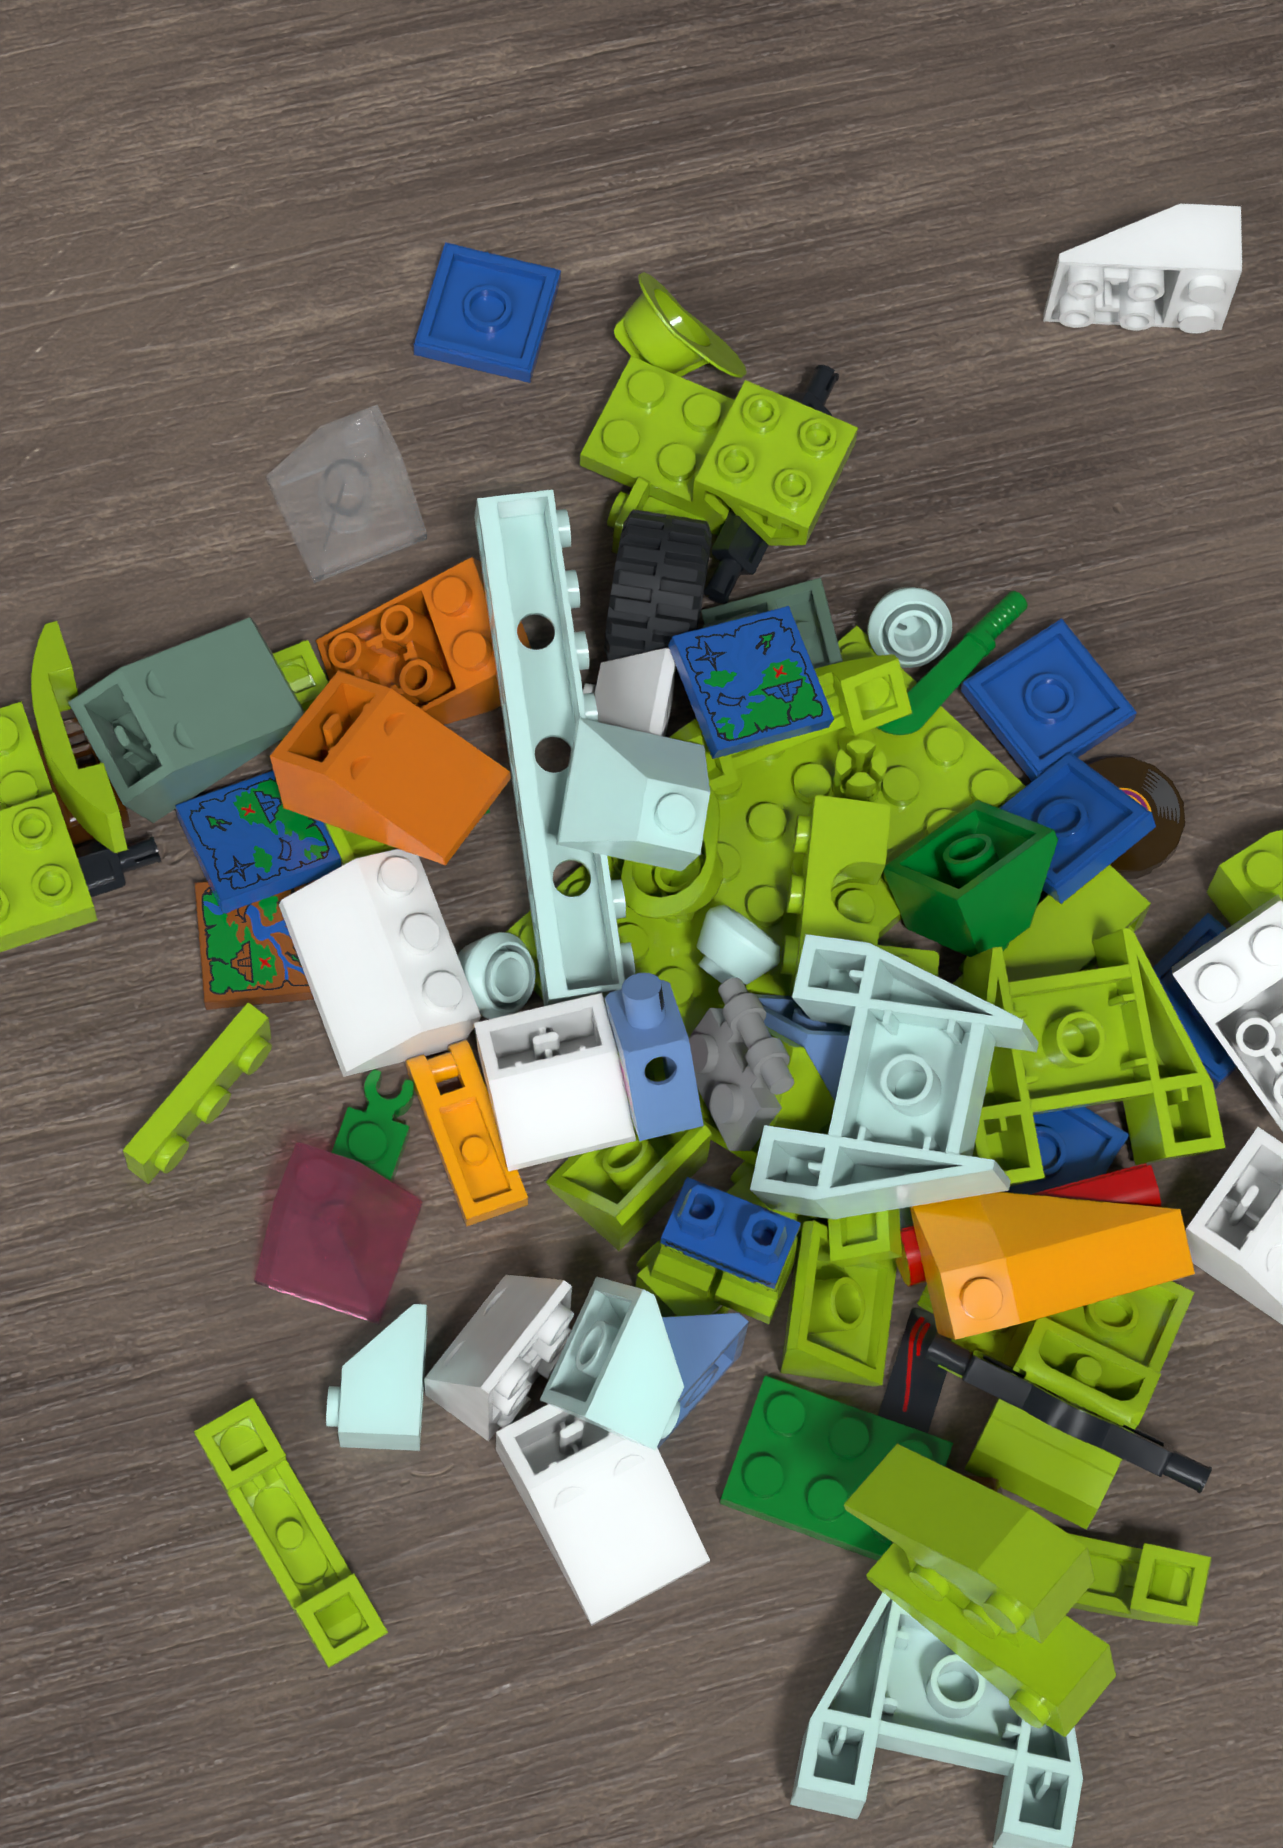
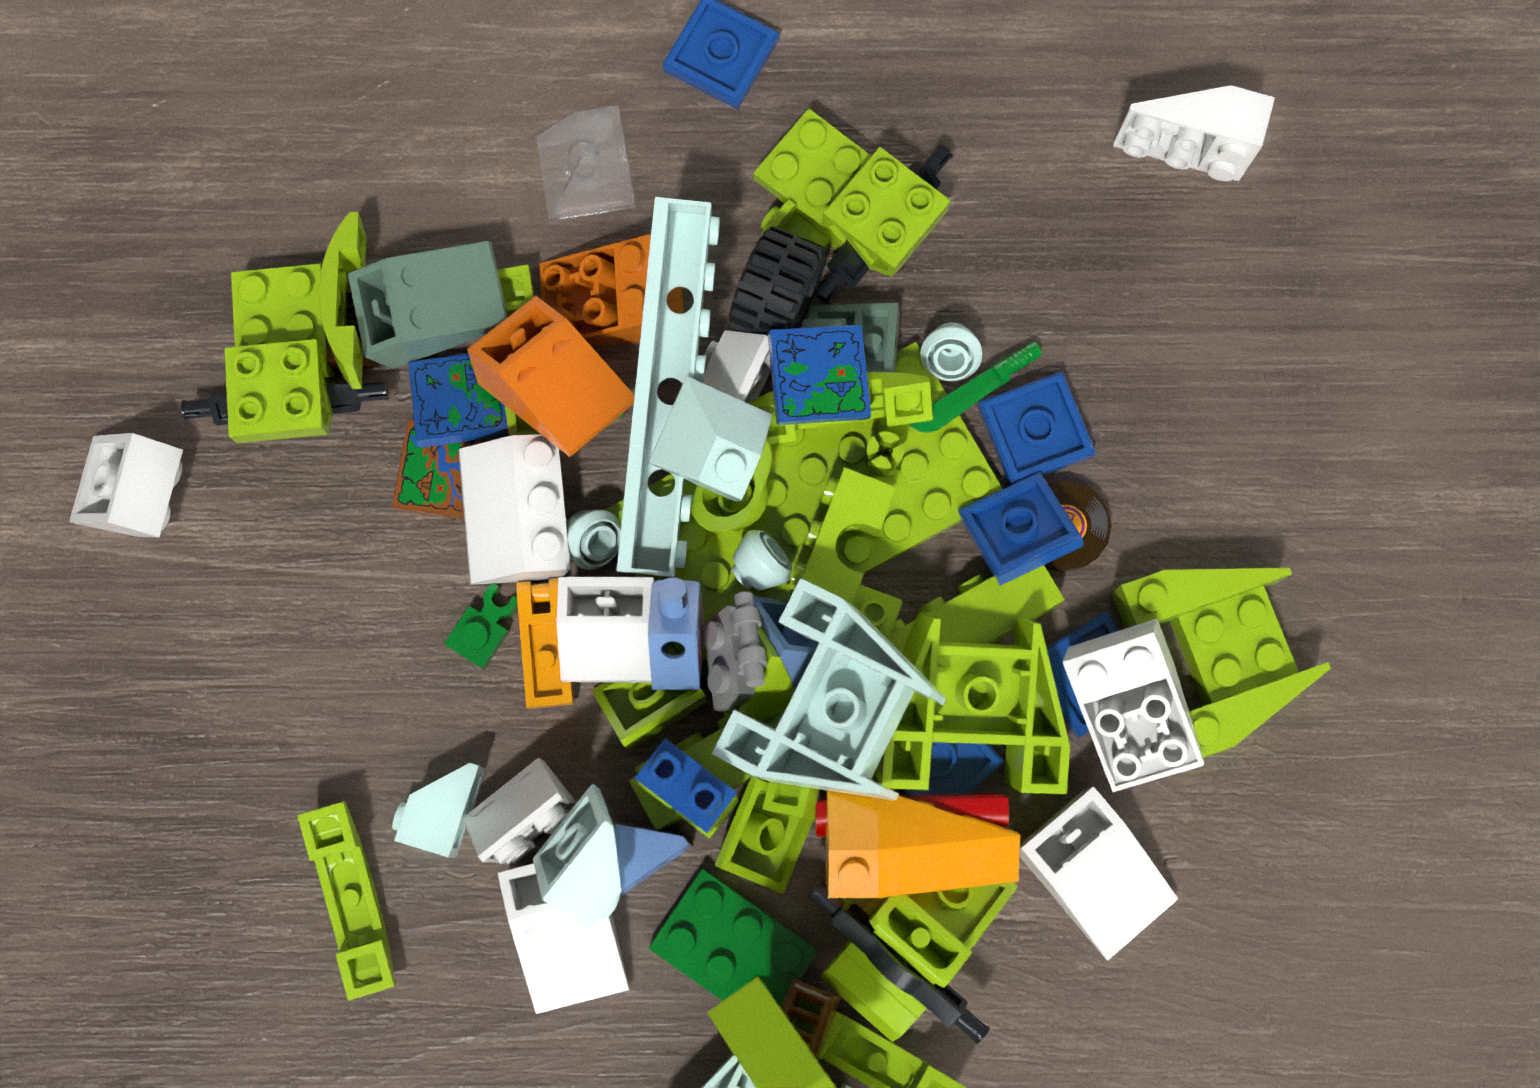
camera: 20 degrees right, 10 degrees up
(199, 1095) = (369, 573): lime plate -> none
(336, 1234) = (437, 695): clear pink slope -> none
(669, 336) = (843, 100): lime piece -> none
(914, 1381) = (797, 909): black sticker -> none
(973, 879) = (943, 553): green slope -> none

